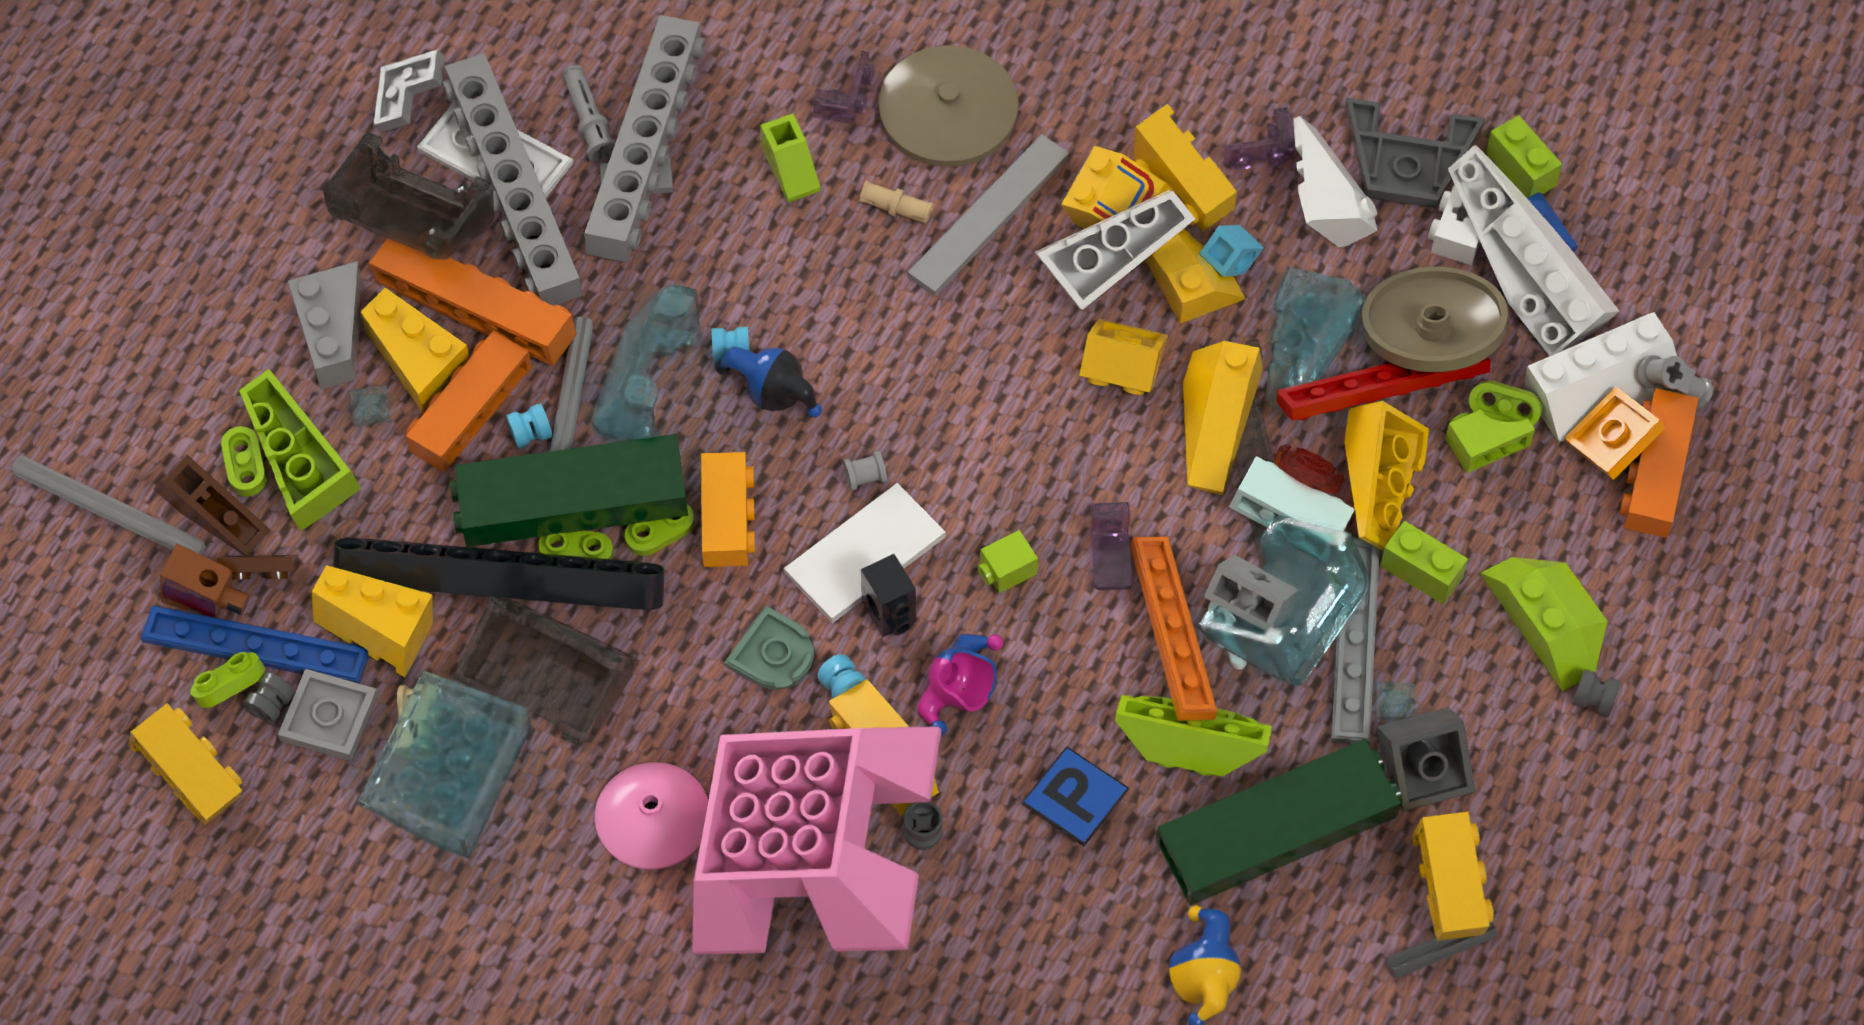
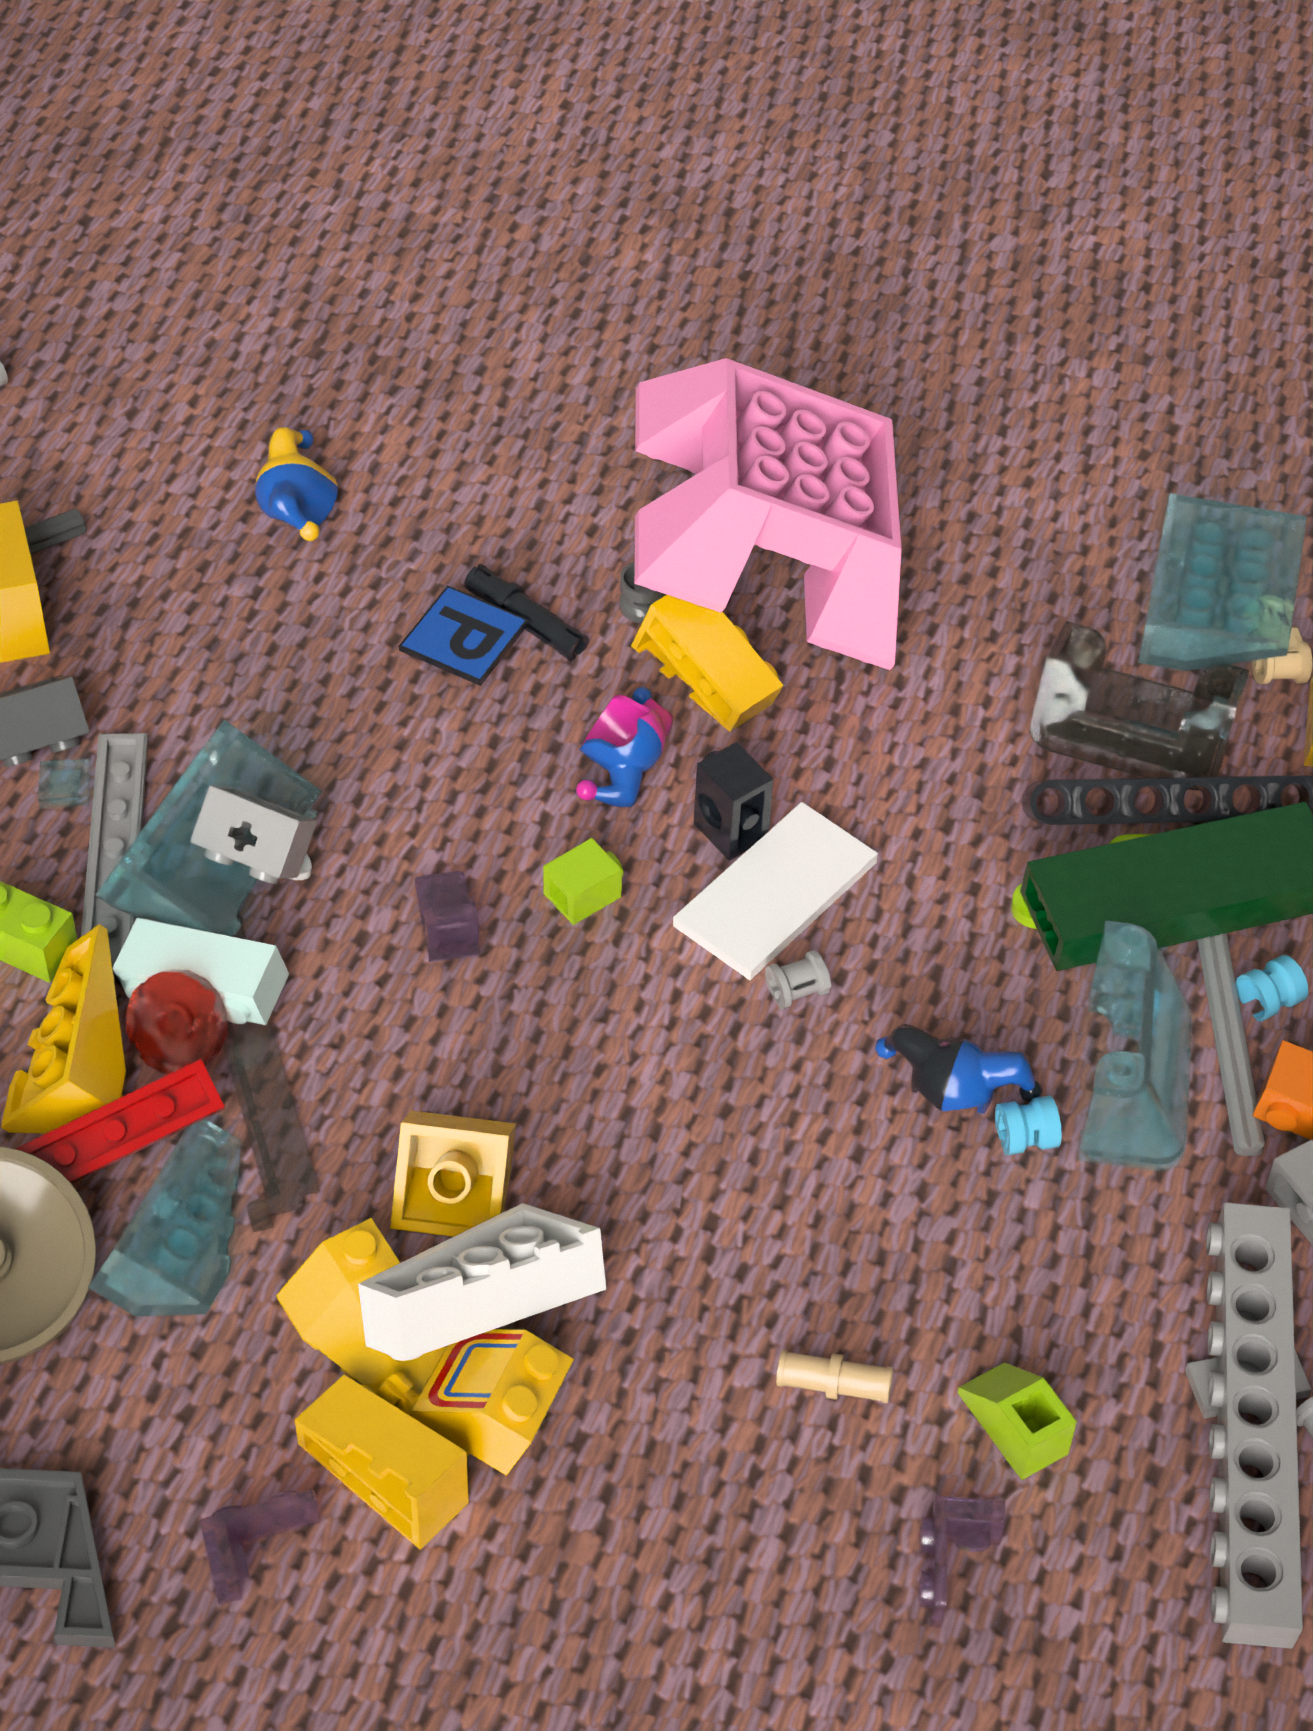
camera: 170 degrees right, 10 degrees down
(657, 835) = (965, 592): bright pink dish -> none
(726, 509) = (973, 909): light orange brick -> none
(773, 652) = (867, 767): sand green tile -> none
(839, 675) = (770, 725): medium azure wheel -> none
(948, 106) = (784, 1565): dark tan dish -> none
(988, 215) = (683, 1385): light grey tile -> none
(1032, 834) = (542, 622): none -> black pin
(1173, 629) = (357, 811): orange tile -> none
(1194, 745) = (321, 708): lime wedge -> none
(1216, 409) = (311, 1114): yellow wedge -> none
(1231, 250) = (298, 1334): medium azure brick -> none
(1278, 821) = (211, 633): dark green brick -> none
(1329, 194) = (136, 1444): white wedge -> none

